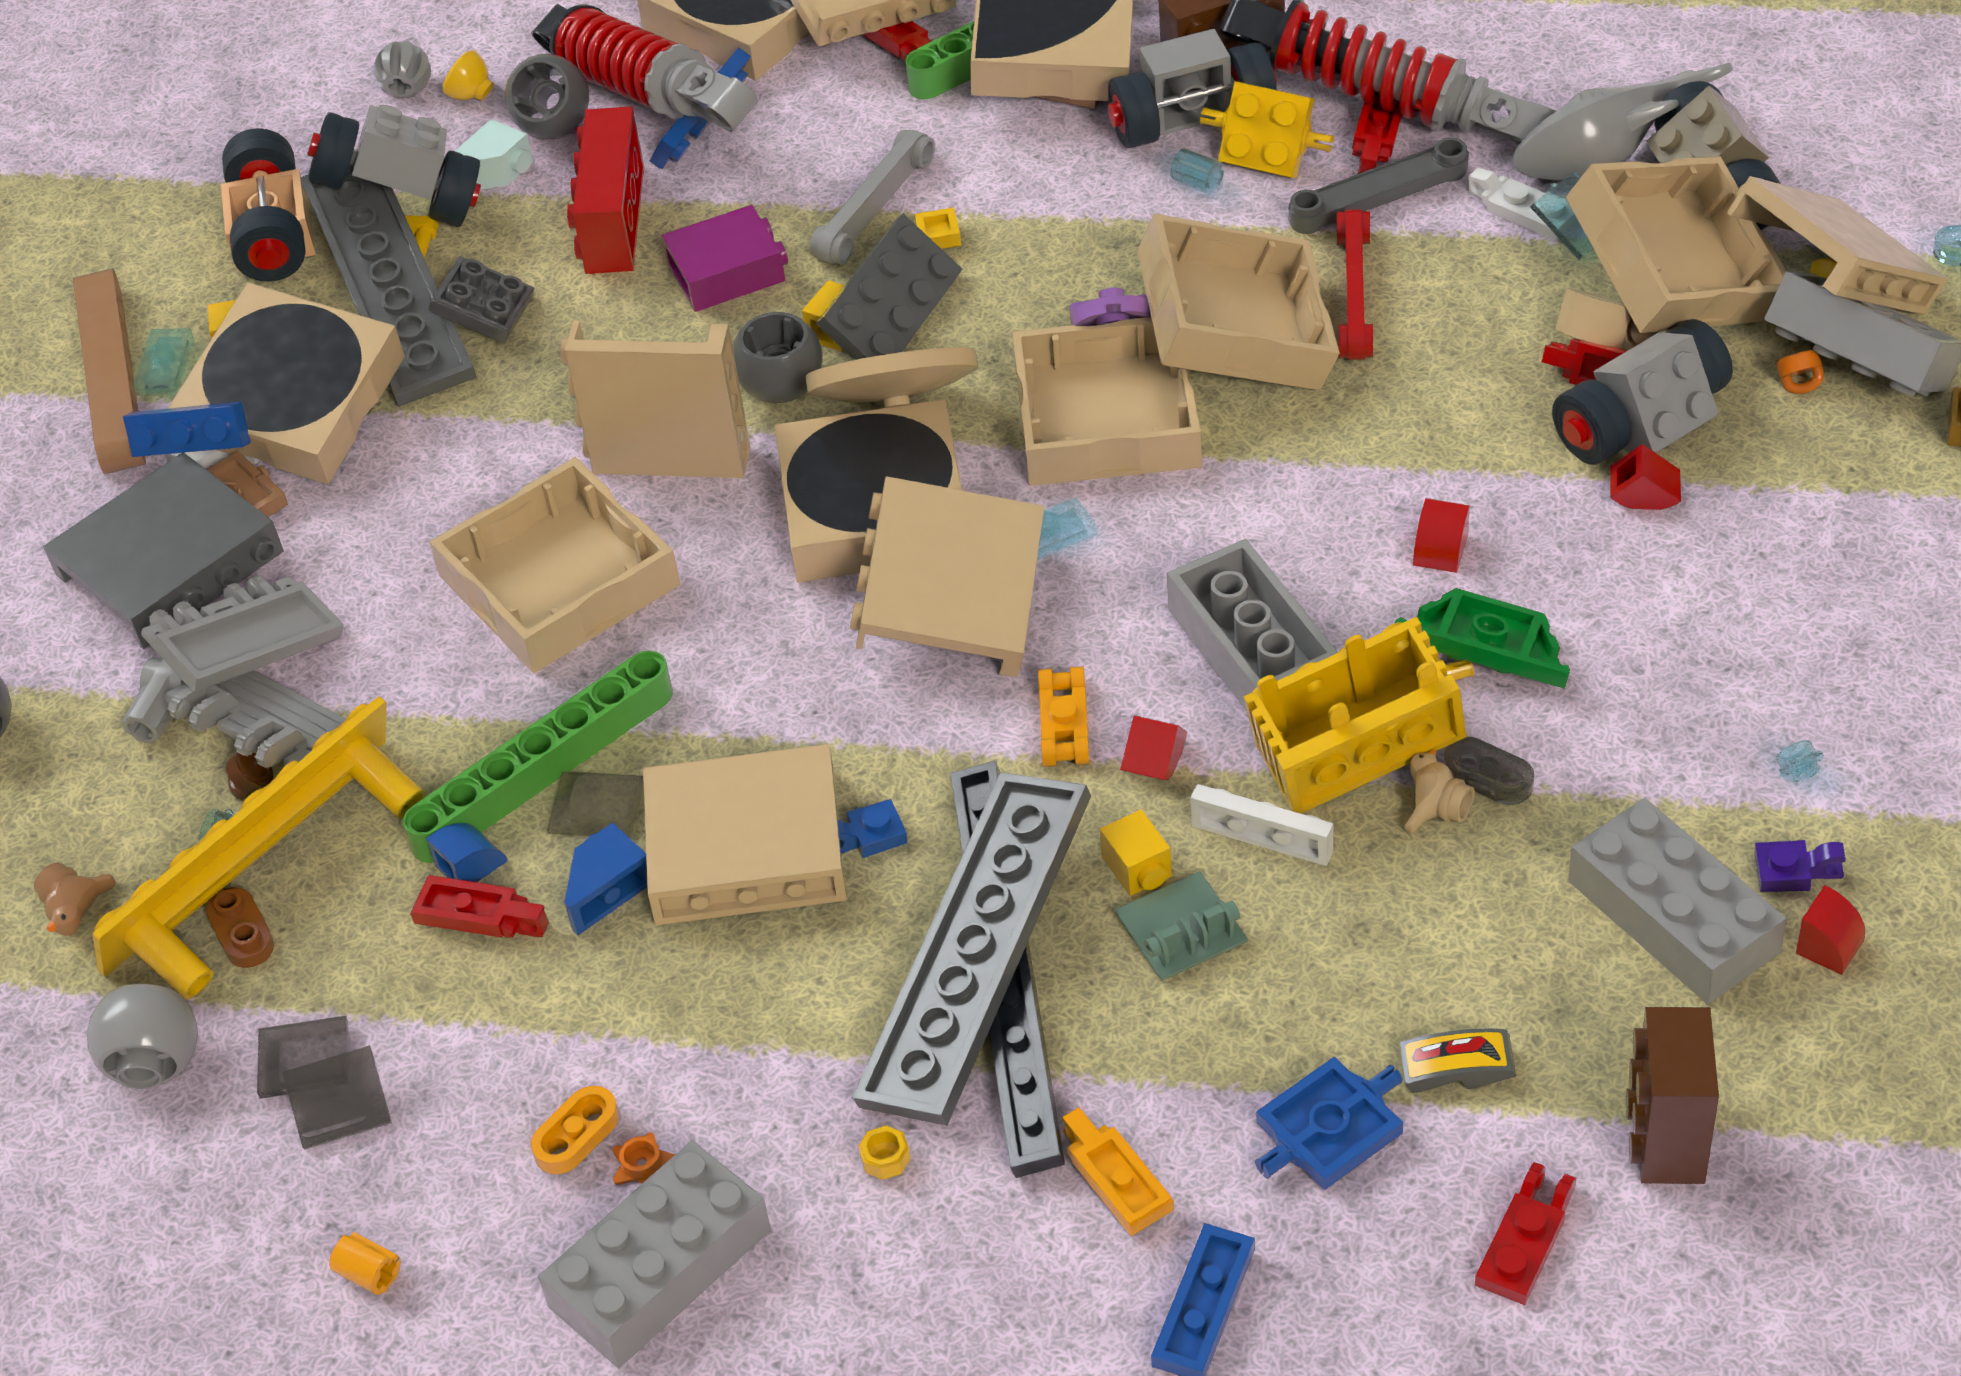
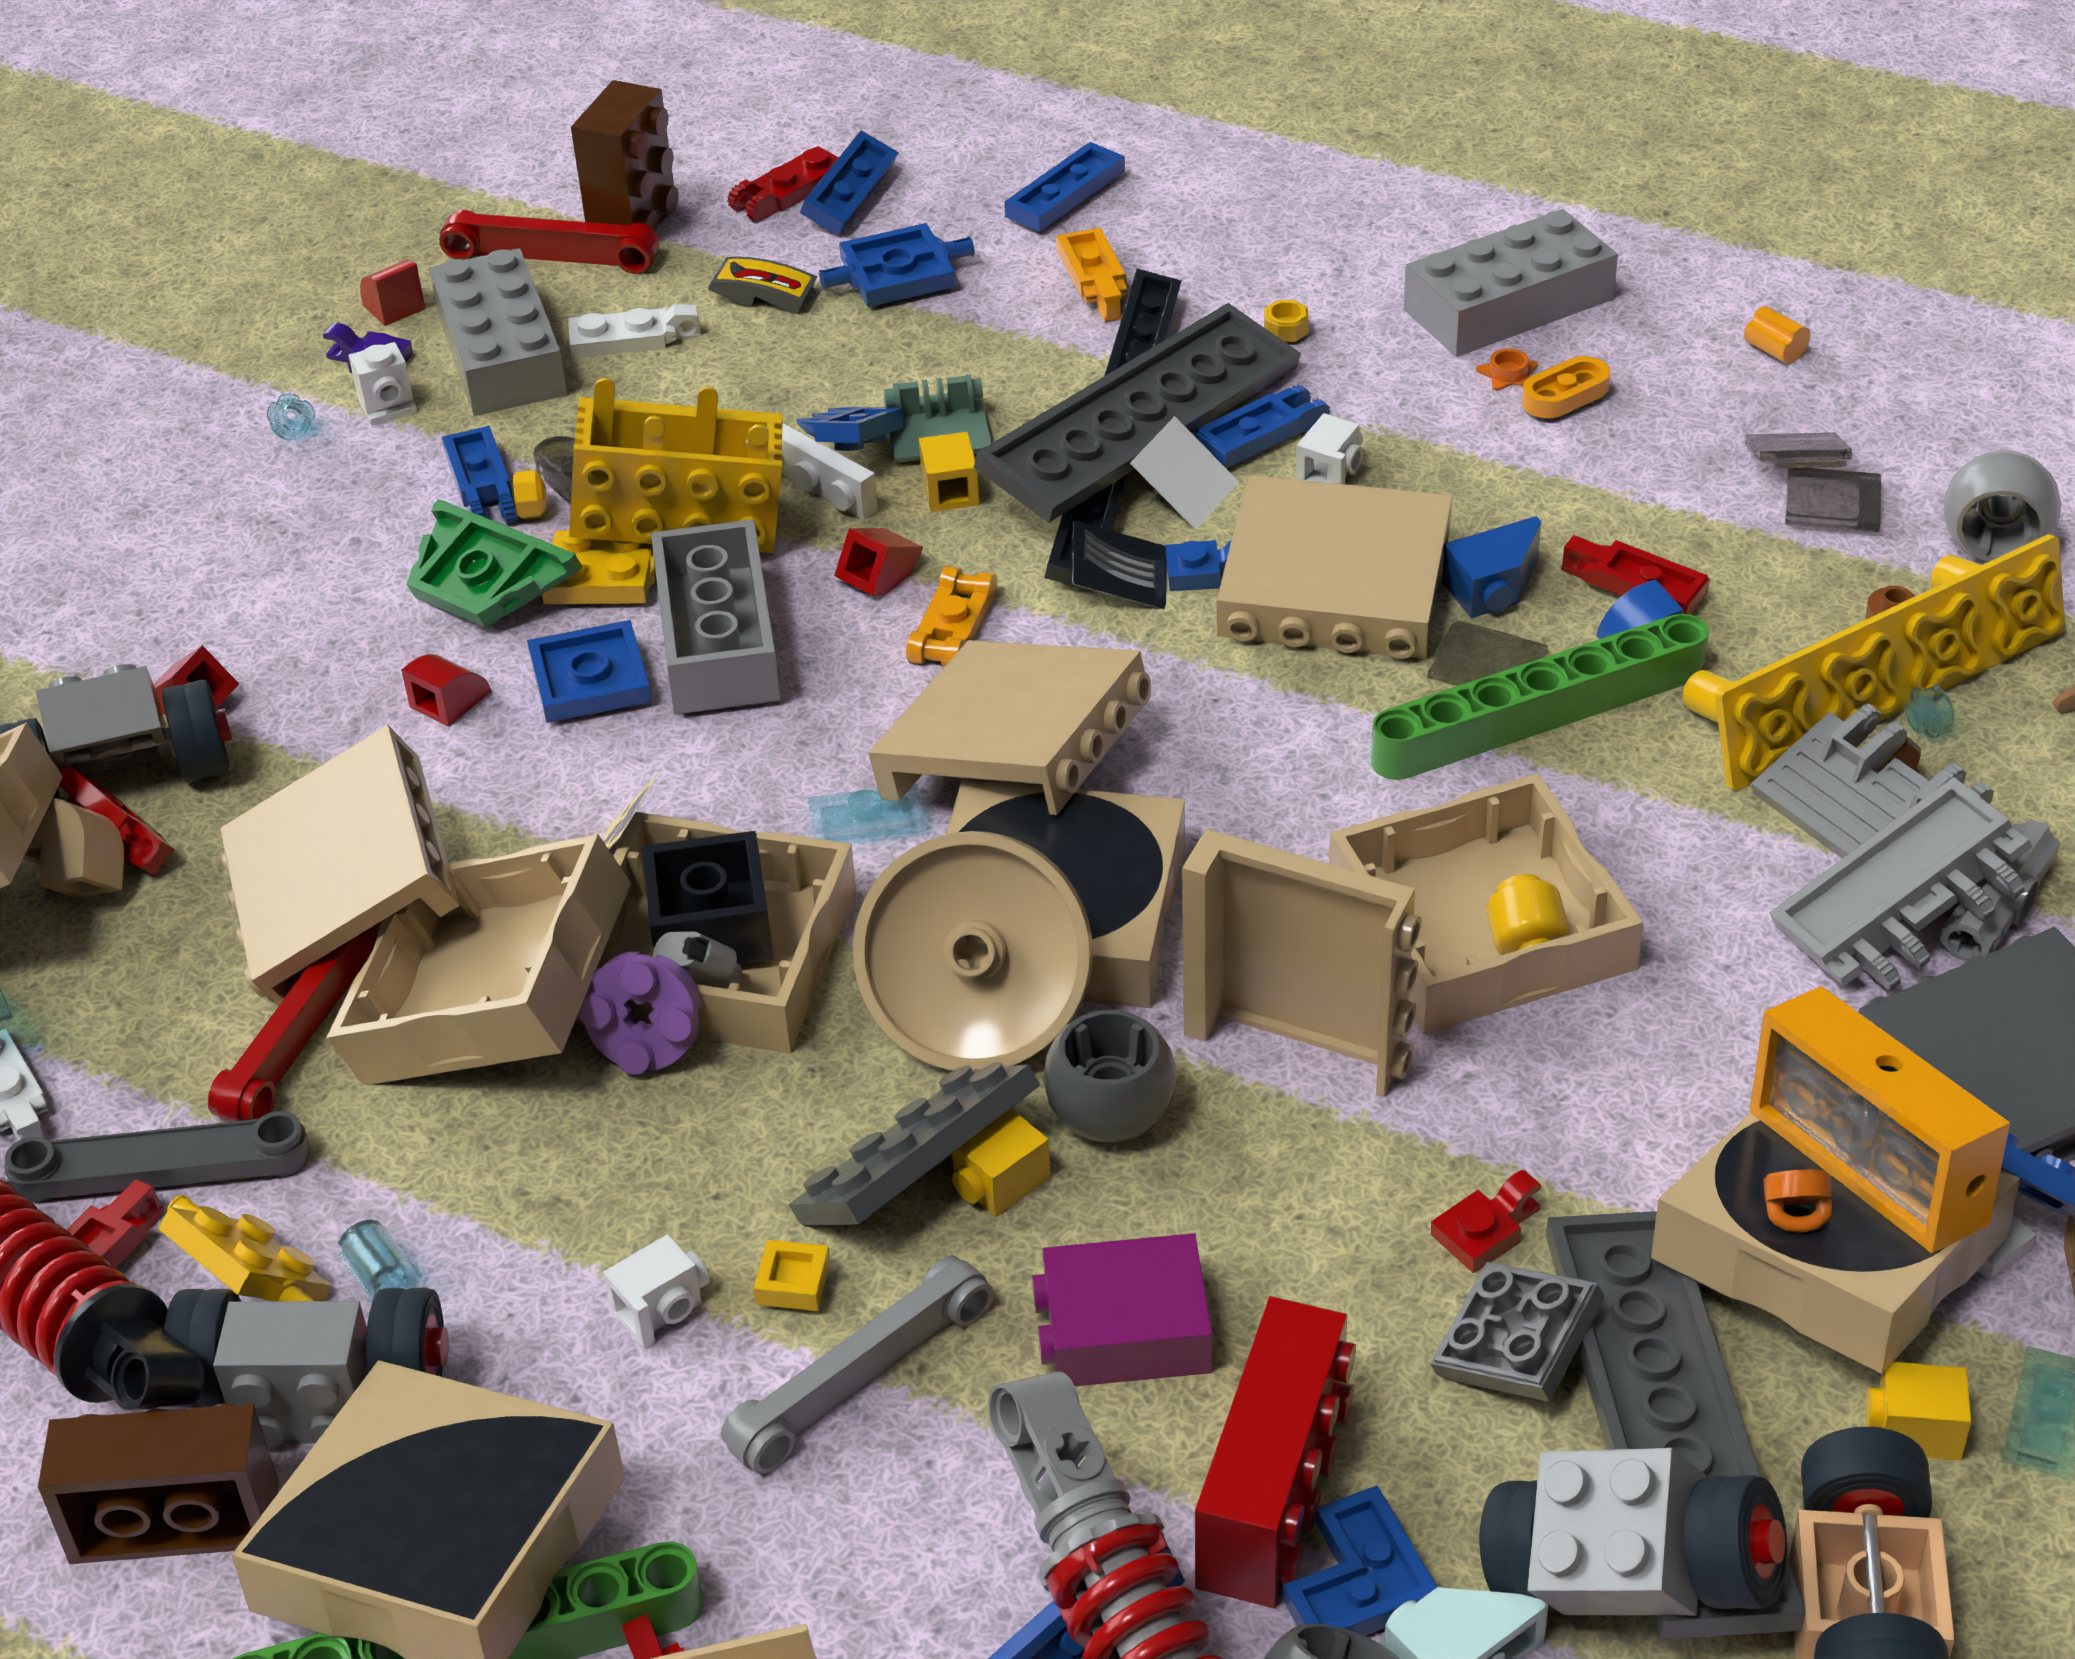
camera: 165 degrees left, 5 degrees down
(254, 363) = (1878, 1118): none -> light orange brick
(305, 326) = (1798, 1188): none -> orange tile
(515, 372) = (1483, 1228): none -> red plate
(517, 550) = (1525, 913): none -> yellow head
(546, 178) = (1373, 1571): none -> blue plate
(785, 967) = (1329, 451): none -> white brick
(861, 1000) = (1261, 425): none -> blue hinge
(913, 904) = (1184, 472): none -> white sticker
(938, 796) = (1119, 565): none -> black sticker
(1015, 195) = (655, 1288): none -> white brick
(1092, 341) = (701, 957): none -> light grey piece
(1111, 391) = (710, 890): none -> black brick
(1215, 440) = (623, 819): none -> sticker
(1243, 858) = (852, 426): none -> blue plate
(1337, 581) = (589, 671): none -> blue plate
(1385, 335) = (333, 859): none -> tan panel
(1449, 1234) = (849, 182): none -> blue plate
(1506, 729) = (529, 494): none -> yellow tile
(1557, 965) = (631, 330): none -> white hinge
(1571, 745) = (479, 471): none -> blue hinge
(1731, 801) = (382, 383): none -> white brick
(1815, 1034) = (625, 246): none -> red piece

